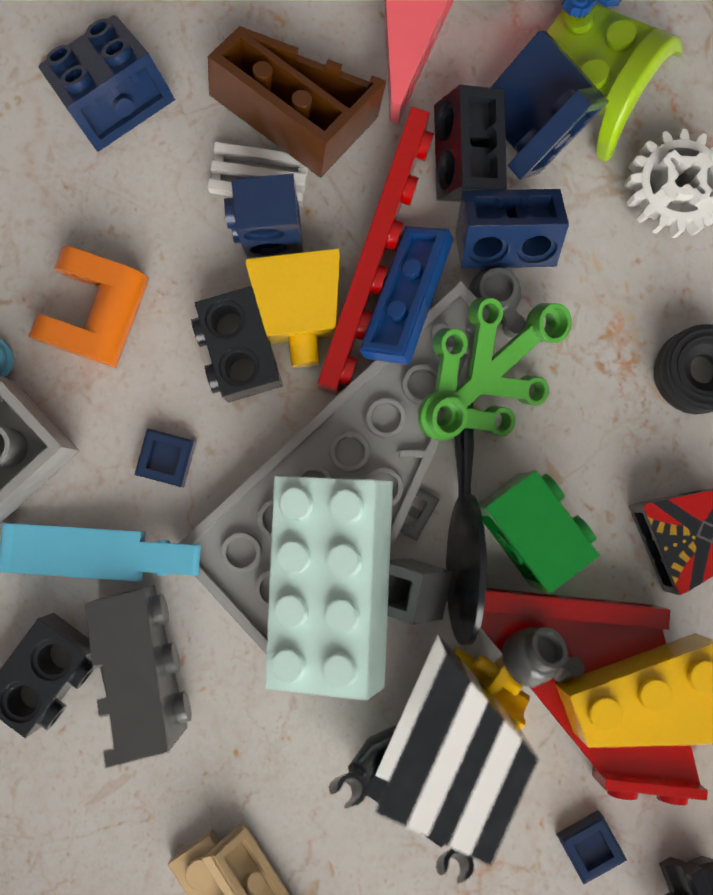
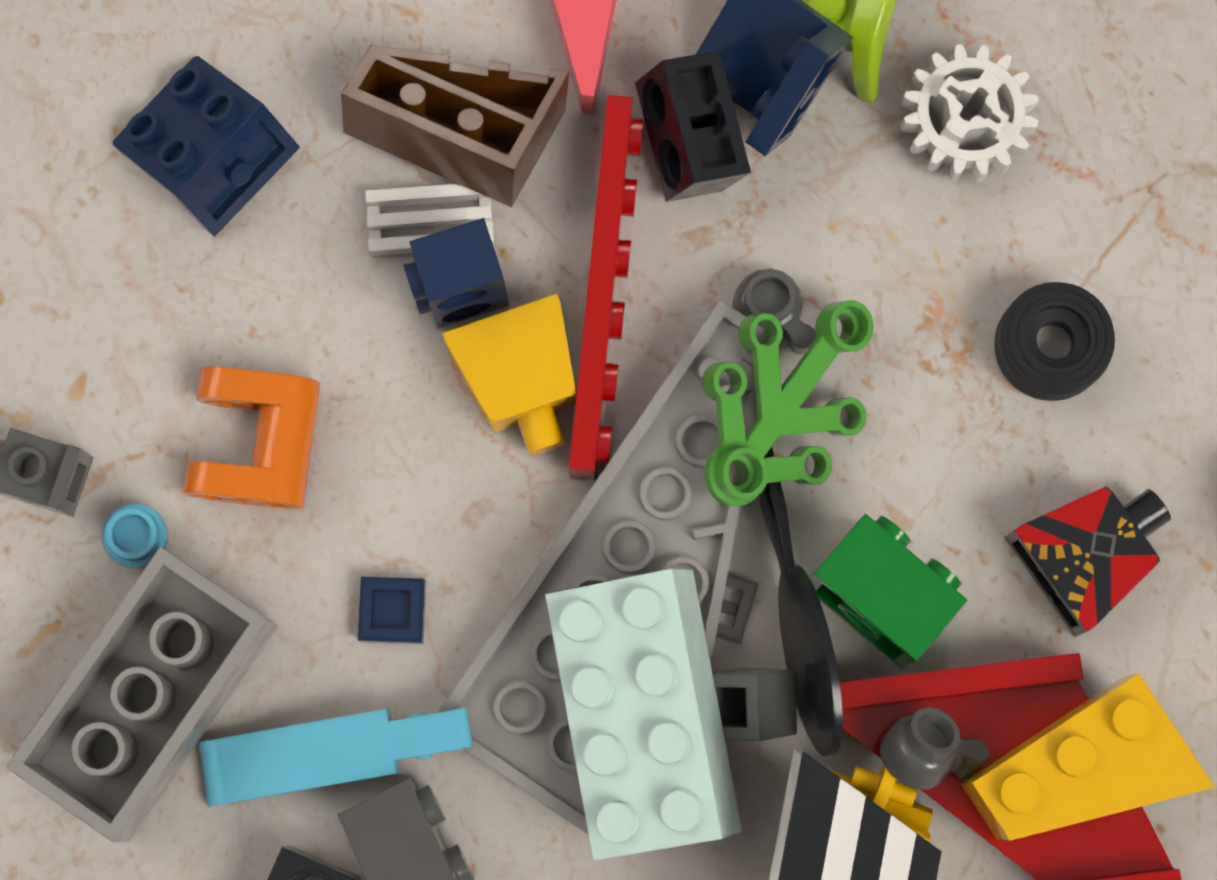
camera: 10 degrees left, 5 degrees down
(245, 343) = (466, 438): black brick -> none
(407, 295) = (656, 331): blue tile -> none
(511, 228) = (768, 219): dark blue brick -> none

